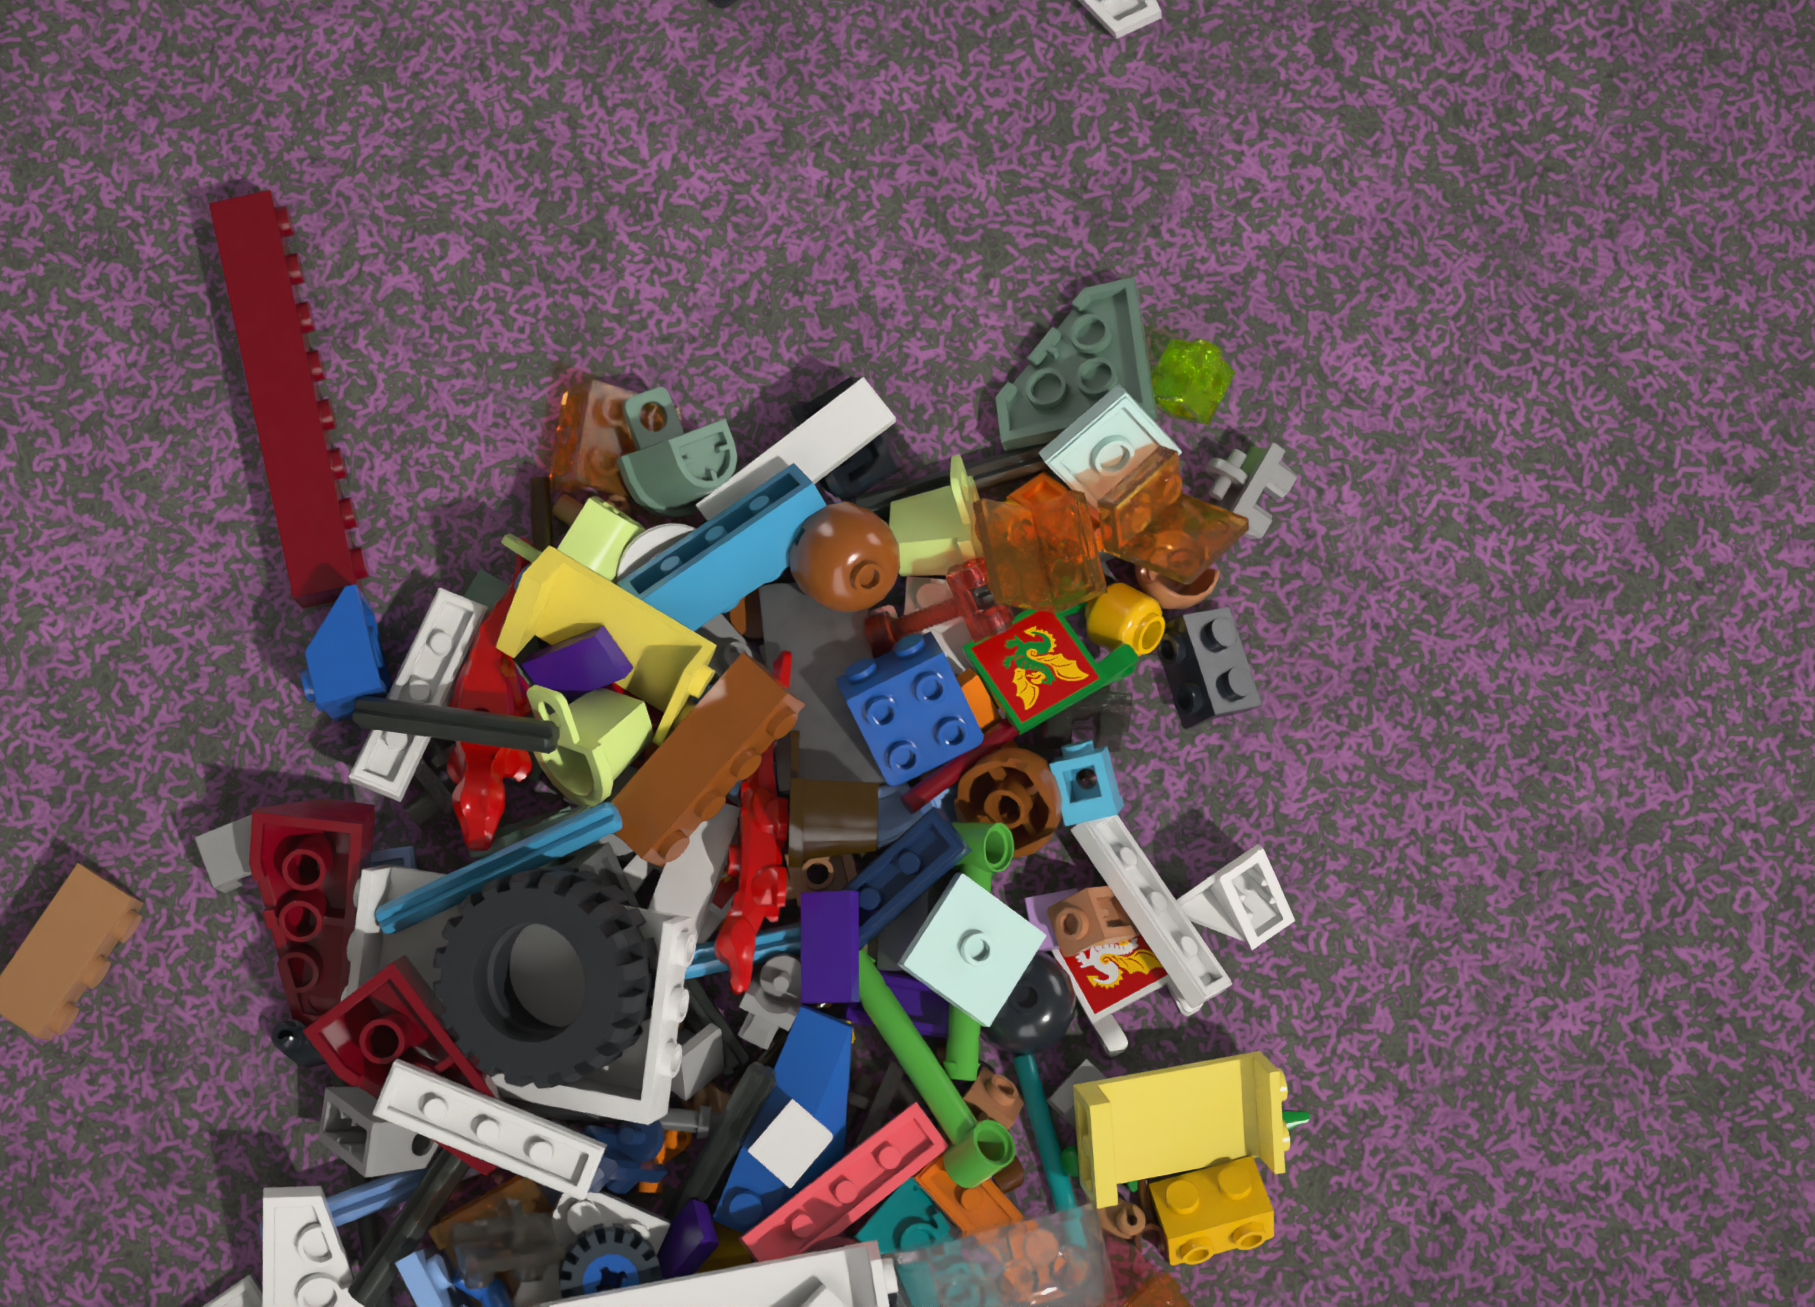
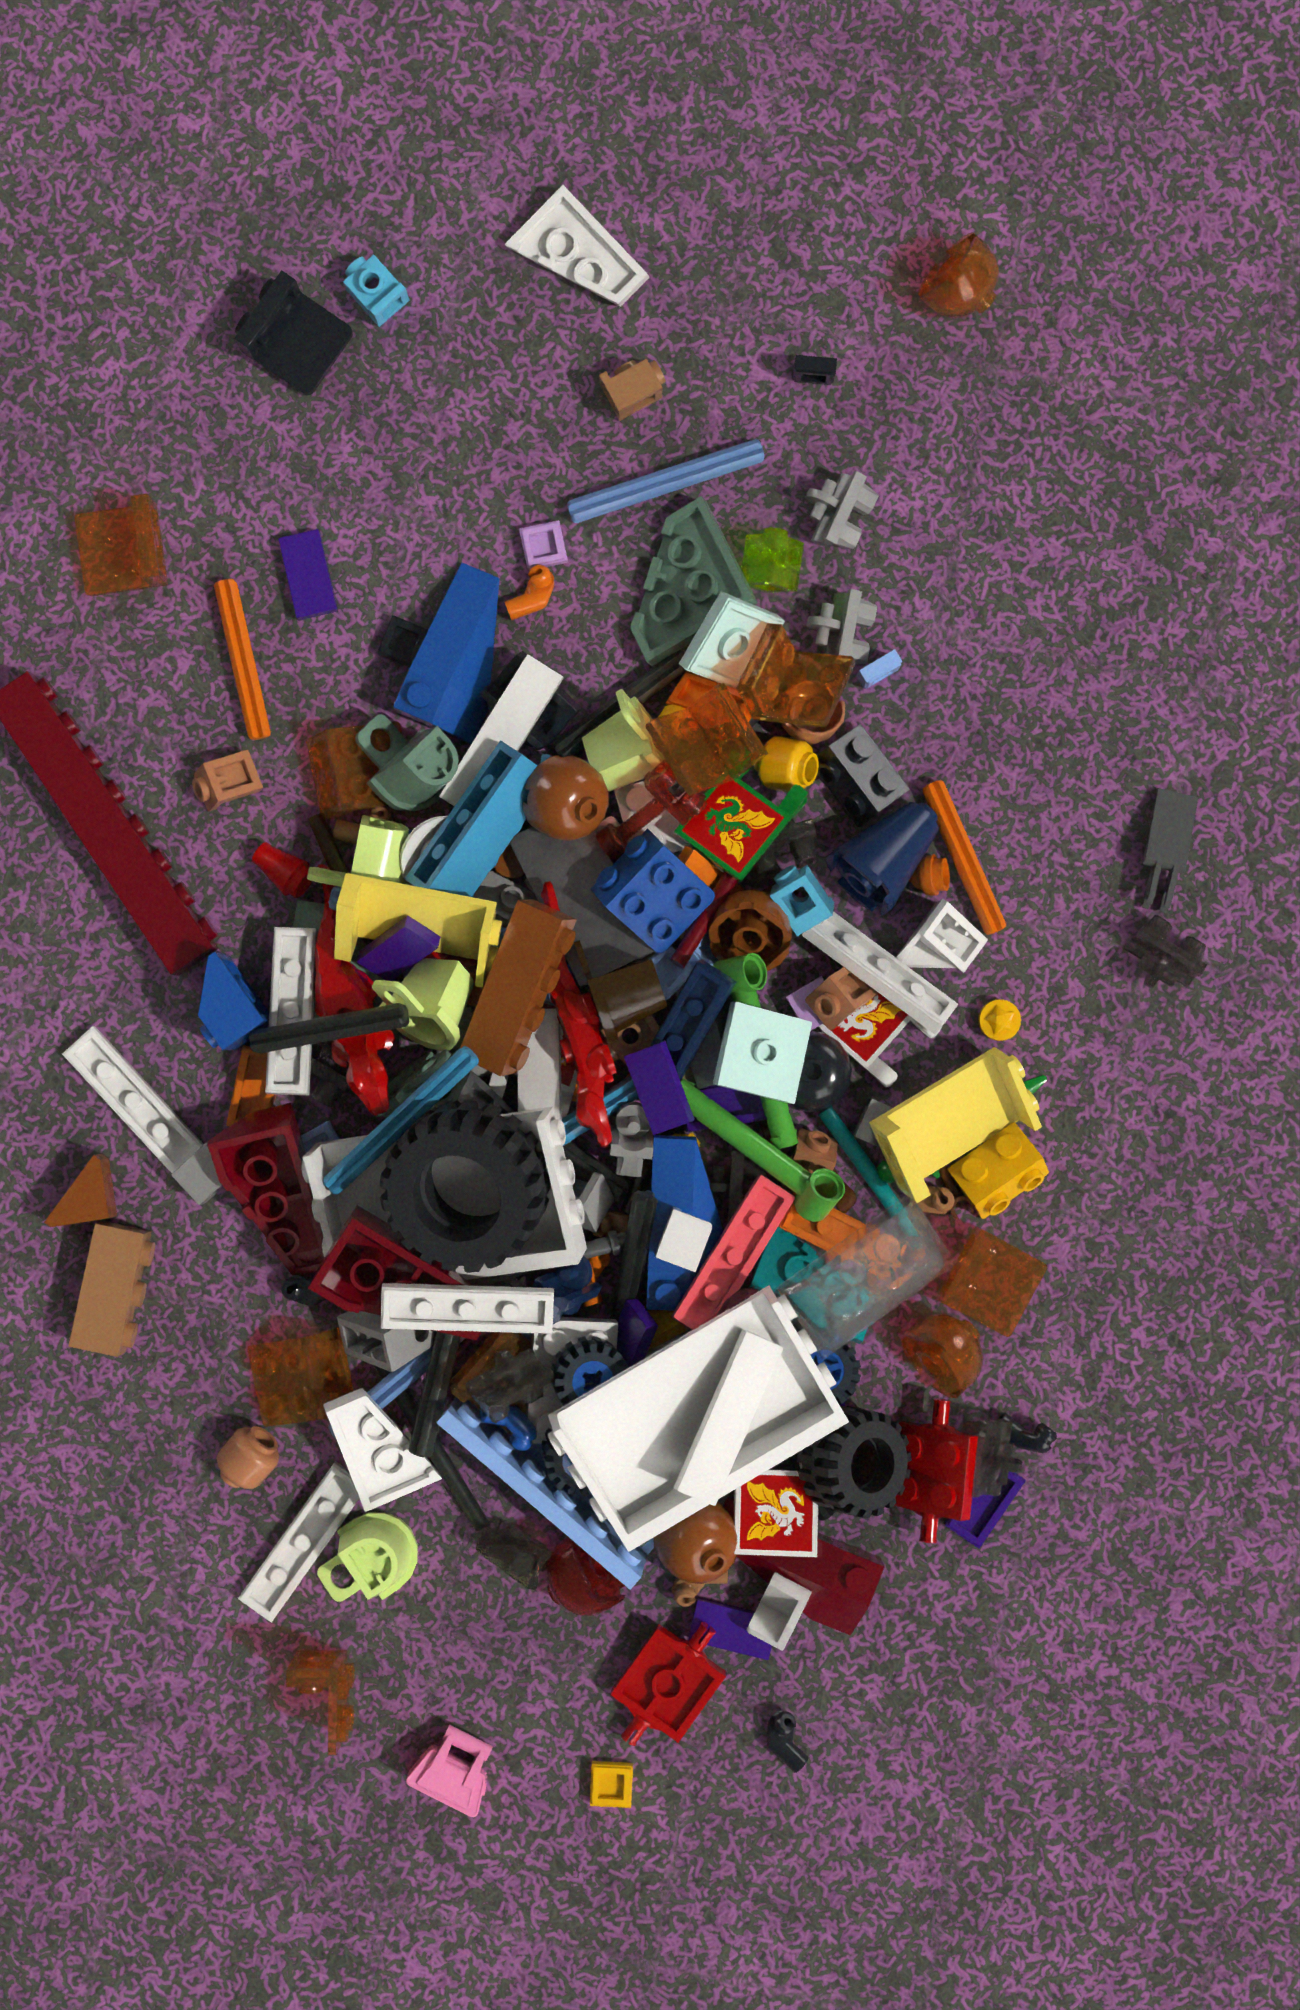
camera: 10 degrees left, 10 degrees up
(83, 830) = (88, 1197): none -> dark orange slope
(145, 1227) = (248, 1457): none -> nougat head
(186, 732) = (132, 1099): none -> white tile
(248, 1146) = (299, 1376): none -> clear orange bracket
(332, 769) = (249, 1086): none -> orange tile
(438, 97) = (121, 548): none -> clear orange bracket
(451, 399) = (226, 779): none -> nougat bracket
(477, 528) = (283, 869): none -> red cone
(526, 272) = (242, 659): none -> orange axle
(641, 204) = (308, 574): none -> dark purple tile
(723, 320) = (401, 641): none -> black tile
(774, 358) = (455, 659): none -> blue wedge
(898, 322) = (536, 593): none -> orange arm
(928, 269) = (543, 545): none -> lavender tile
(1098, 129) = (633, 387): none -> medium nougat brick
(1098, 248) = (666, 481): none -> medium blue axle
(1204, 771) = (884, 856): none -> dark blue cone
(1251, 815) = (931, 875): none -> orange plate
(1274, 550) = (879, 669): none -> light blue tile
(1276, 1023) = (999, 1020): none -> yellow tile
(1300, 810) = (964, 857): none -> orange axle
(1307, 338) = (834, 506): none -> light grey hips
(1316, 184) = (814, 369): none -> black tile
(1504, 1019) = (1164, 959): none -> clear smoke hips
(1524, 146) = (963, 280): none -> clear orange cylinder
(1554, 882) = (1168, 842): none -> dark grey arm

